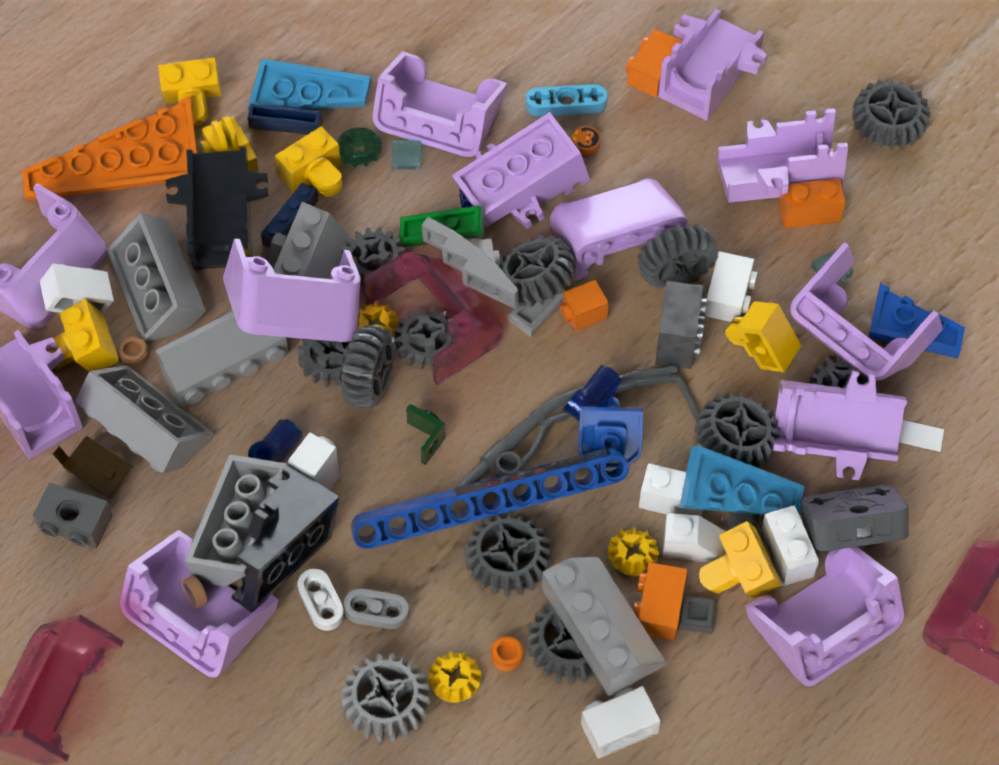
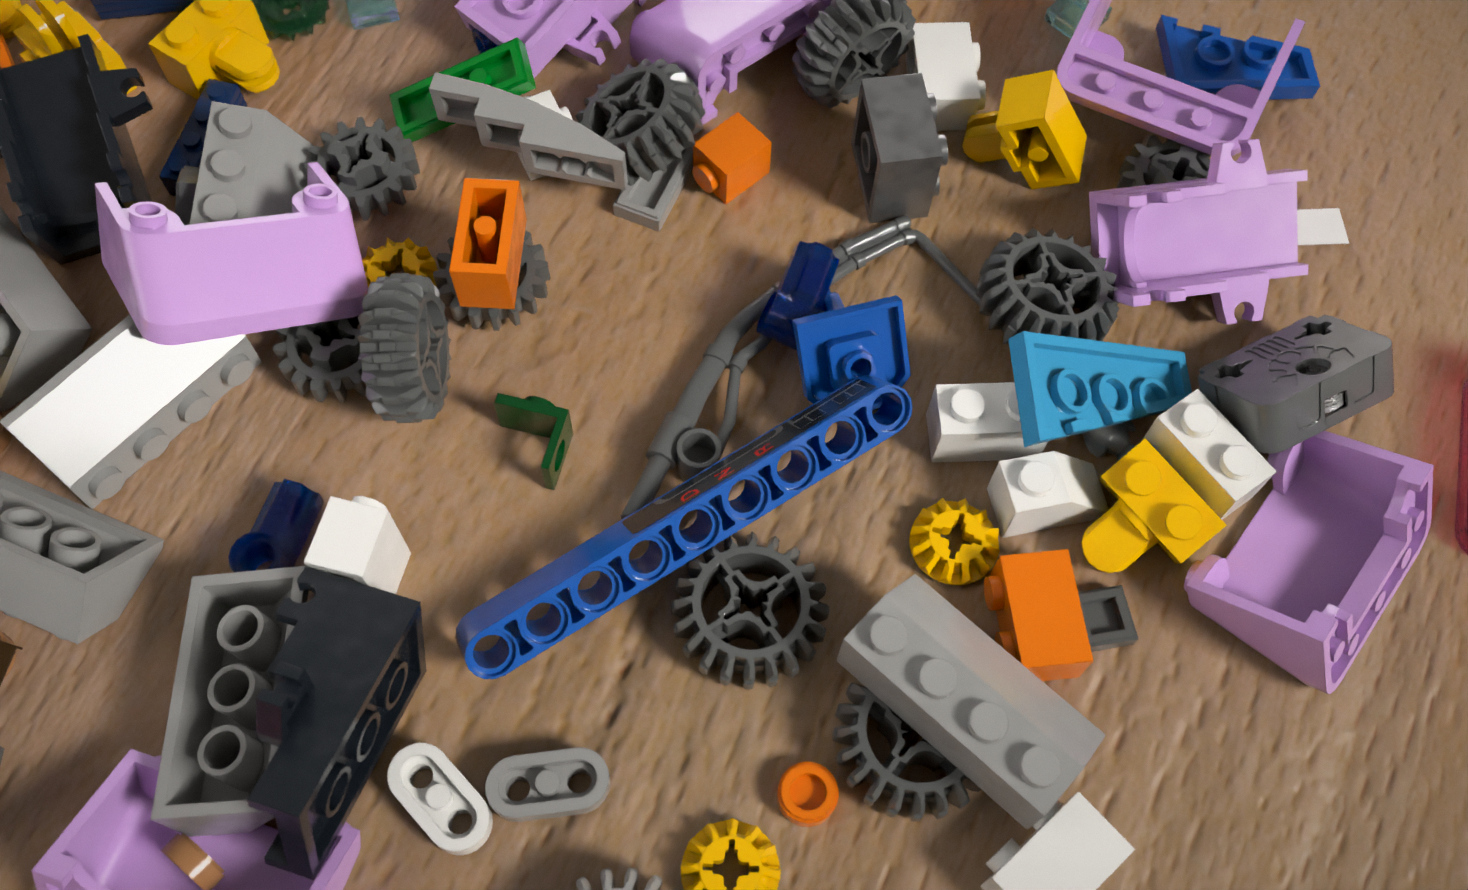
camera: 20 degrees left, 5 degrees up
(428, 321) = (488, 243): none -> orange brick
(472, 325) = (558, 231): clear pink windscreen -> none

